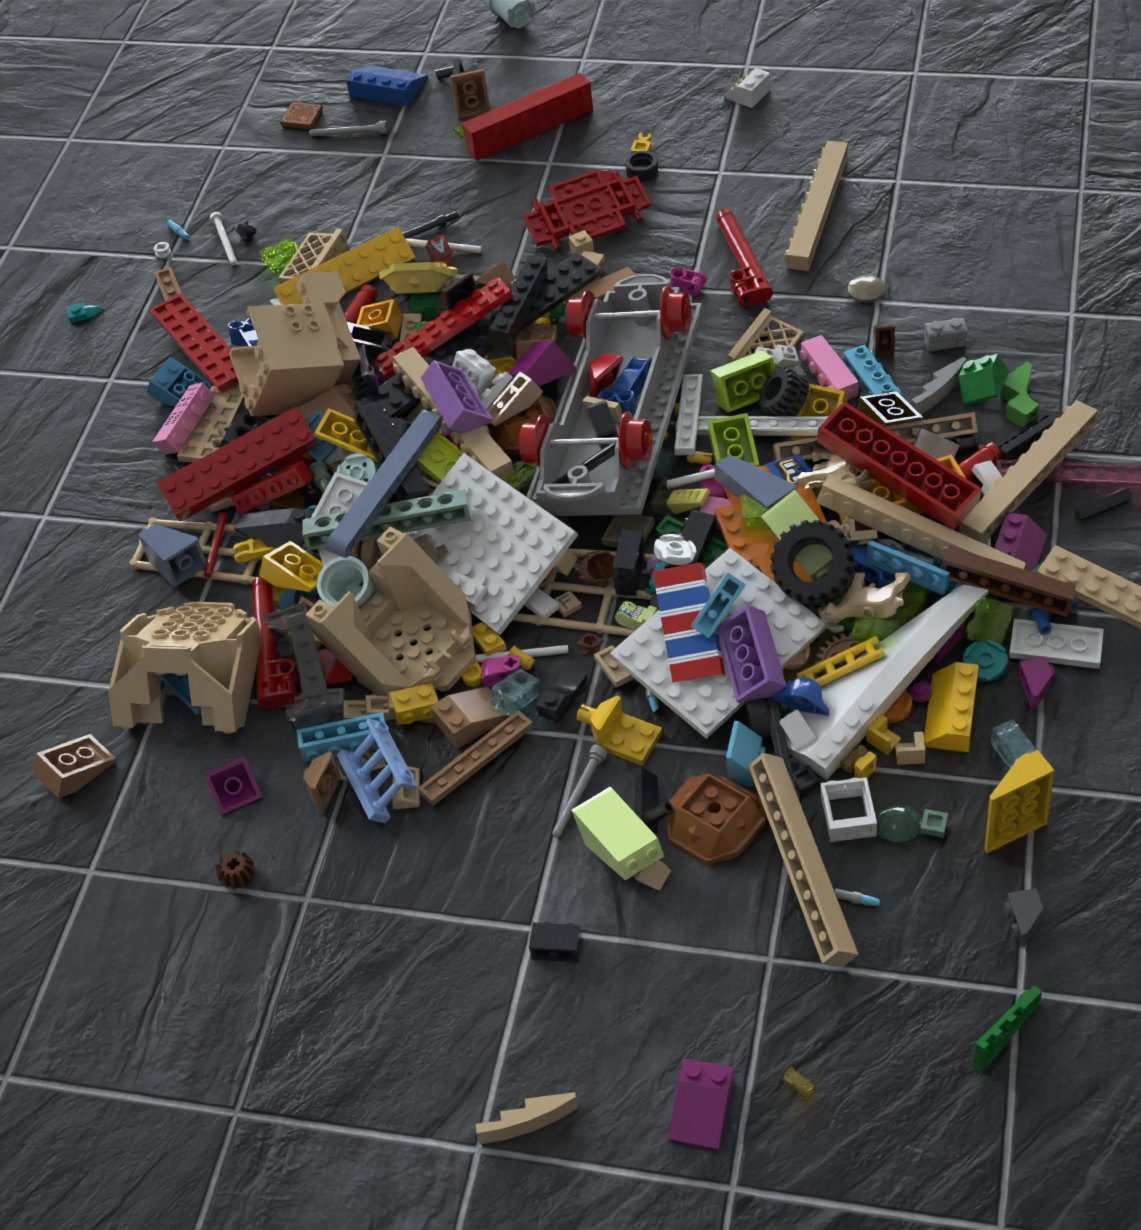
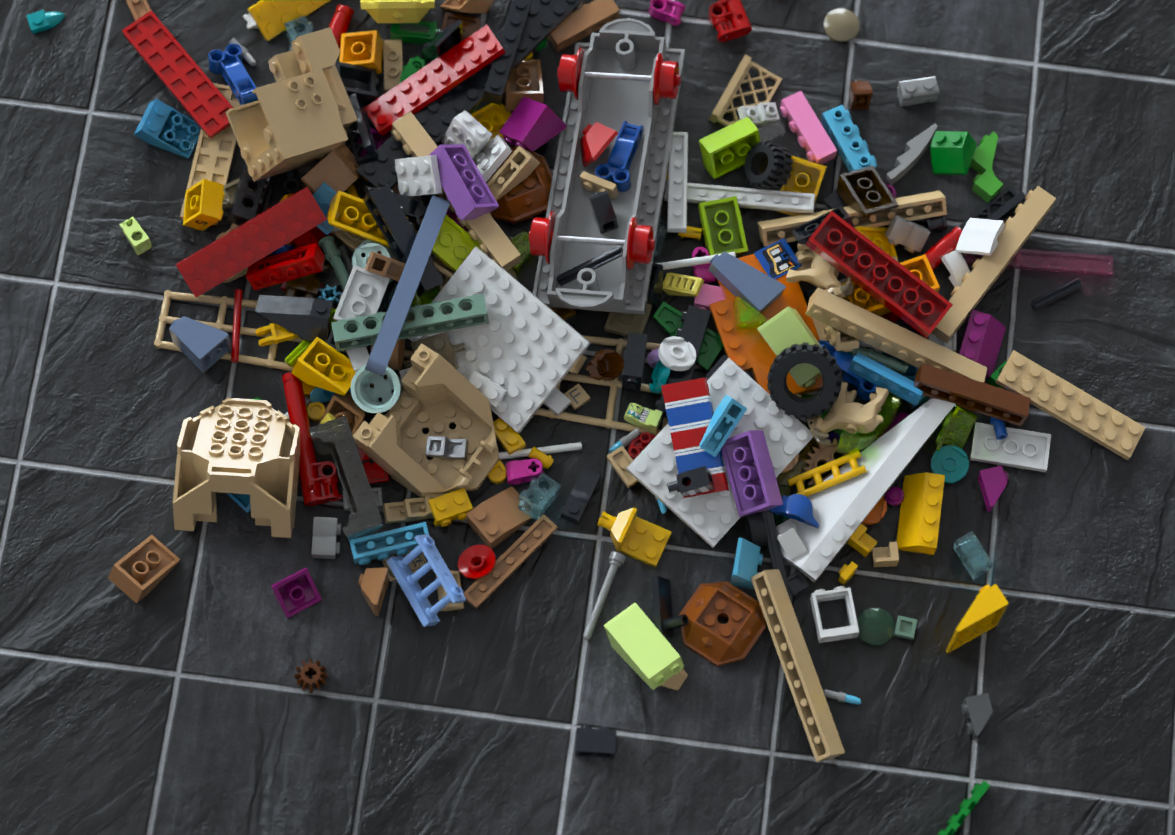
camera: 15 degrees left, 20 degrees up
(131, 473) = (136, 236): none -> yellowish green leg
(184, 418) = (181, 173): bright pink brick -> none
(198, 436) = (203, 204): none -> yellow brick
(274, 735) = (325, 538): none -> light grey brick
(360, 466) = (384, 266): none -> medium nougat brick
(413, 396) = (418, 175): none -> white plate
(415, 646) = (447, 448): none -> flat silver slope
(438, 756) = (472, 557): none -> red dish
(590, 639) = (601, 435): reddish brown plate -> none
(619, 639) = (625, 440): none -> light grey piece
(682, 659) = (700, 480): none -> black torso
(848, 763) = (838, 563): clear yellow pin -> none
(1013, 444) = (980, 236): none -> white slope

